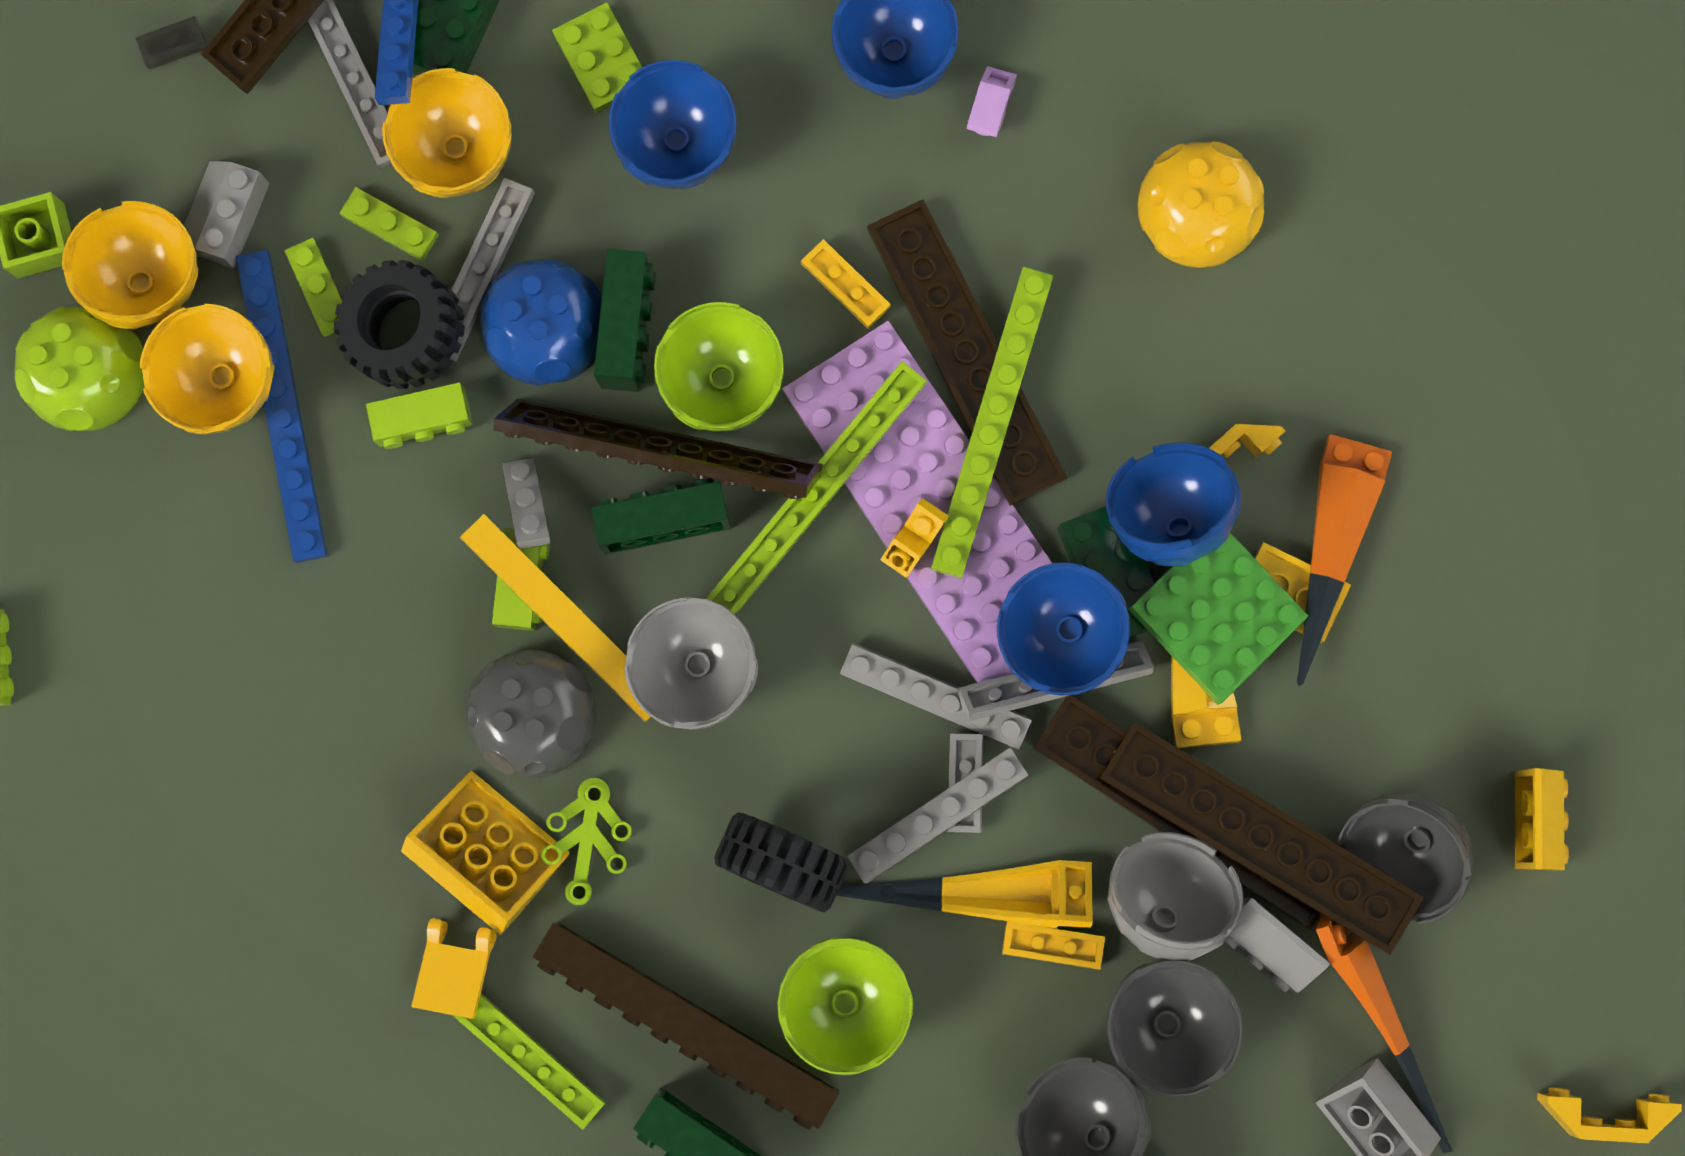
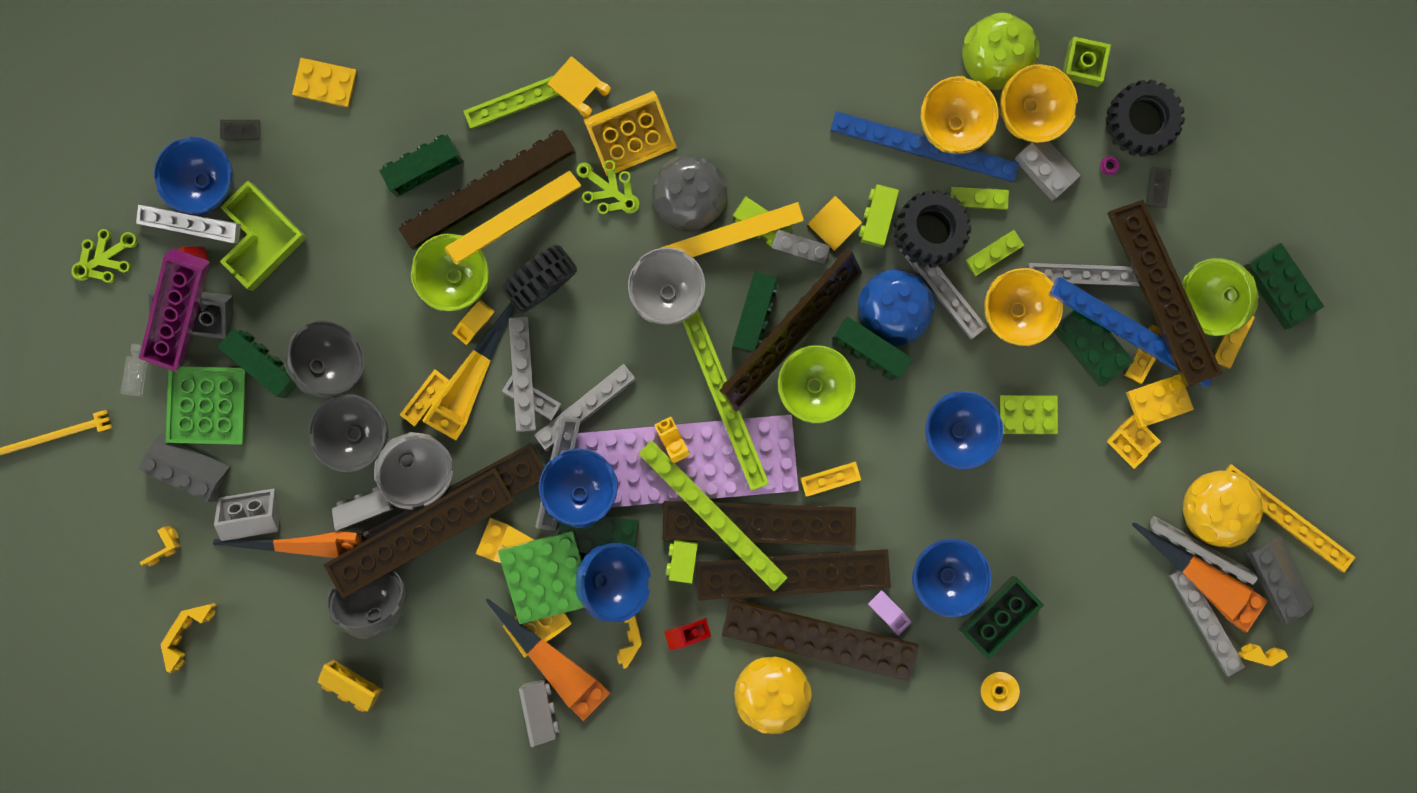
camera: 120 degrees right, 5 degrees up
(49, 82) = (1165, 104): none -> black tyre
(169, 120) = (1115, 165): none -> magenta plate
(464, 474) = (834, 223): none -> yellow slope
(710, 957) = (512, 217): none -> yellow tile
(900, 933) = (473, 322): none -> yellow slope
(1000, 248) = (804, 575): none -> dark brown plate
(1083, 428) = (682, 562): none -> lime brick
(1085, 180) = (820, 639): none -> dark brown plate
(1183, 368) = (687, 634): none -> red slope
(1417, 519) = (538, 712): none -> light grey slope

